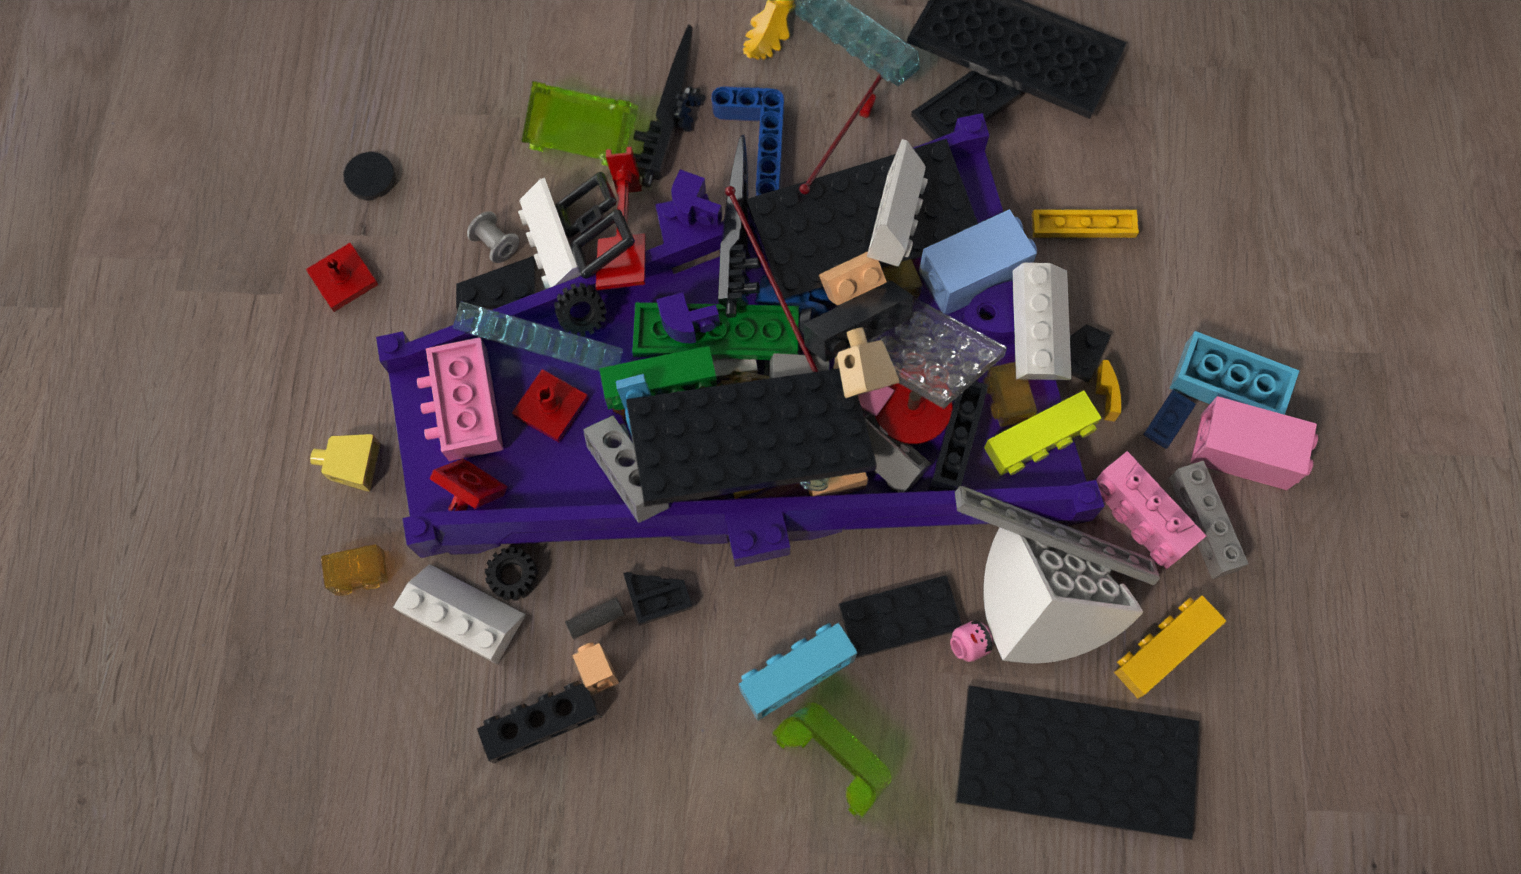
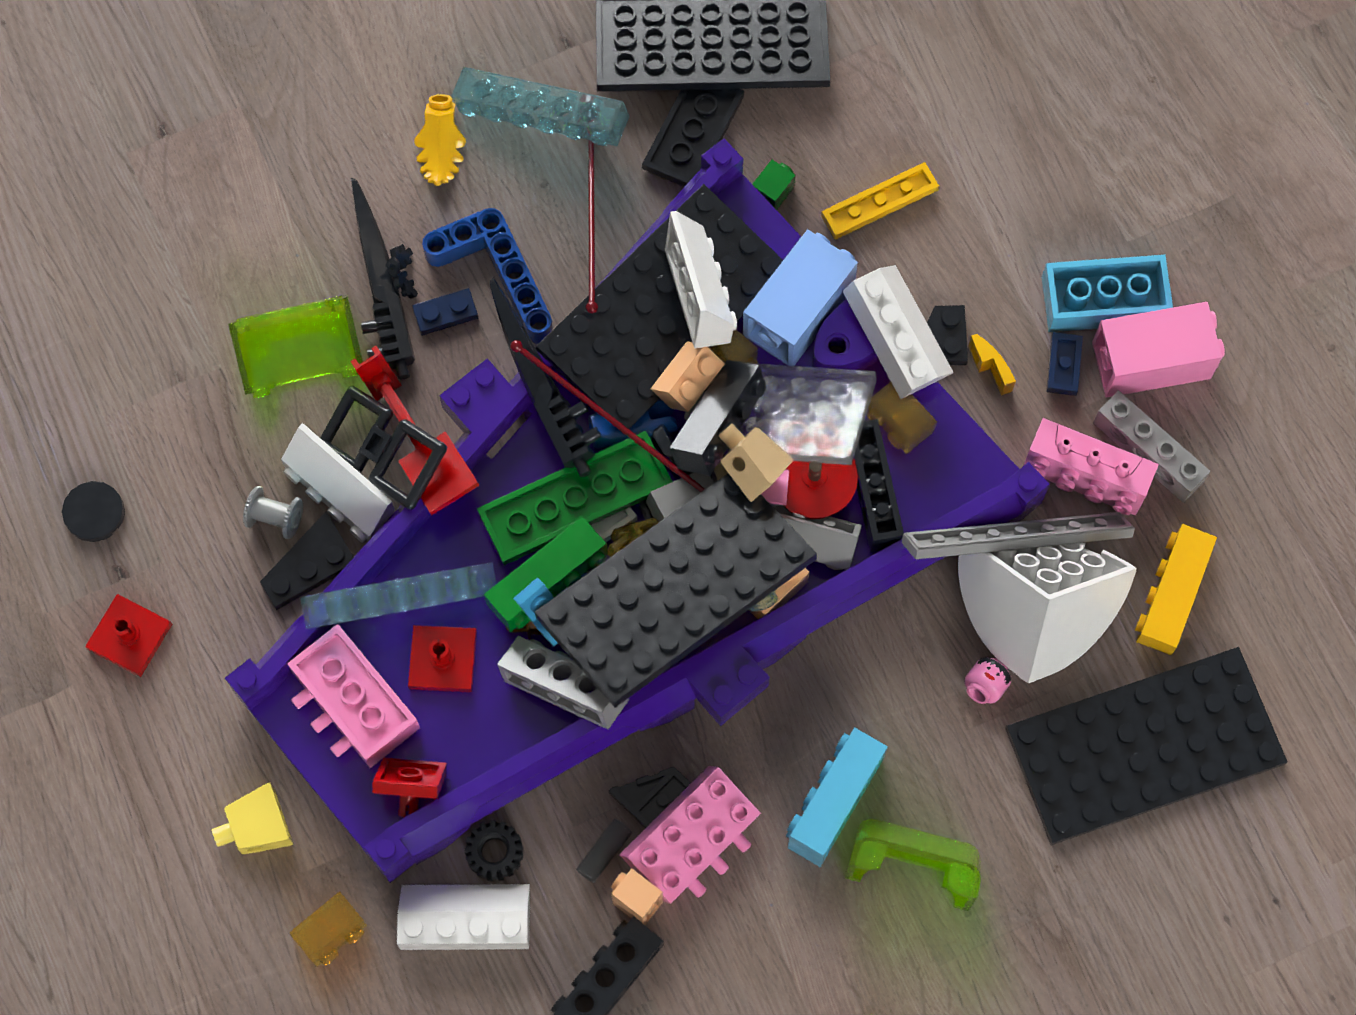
camera: 30 degrees left, 0 degrees up
(576, 295) = (409, 536): black tyre -> none
(665, 643) = (692, 835): none -> bright pink piece
(682, 323) = (537, 506): dark purple brick -> none
(688, 200) = (477, 379): dark purple brick -> none
(704, 152) = (445, 311): none -> dark blue plate
(866, 110) = (596, 178): red tile -> none
(900, 616) = (906, 691): black plate -> none
(1008, 172) = (775, 182): none -> green brick
(1043, 433) = (952, 440): neon yellow brick -> none

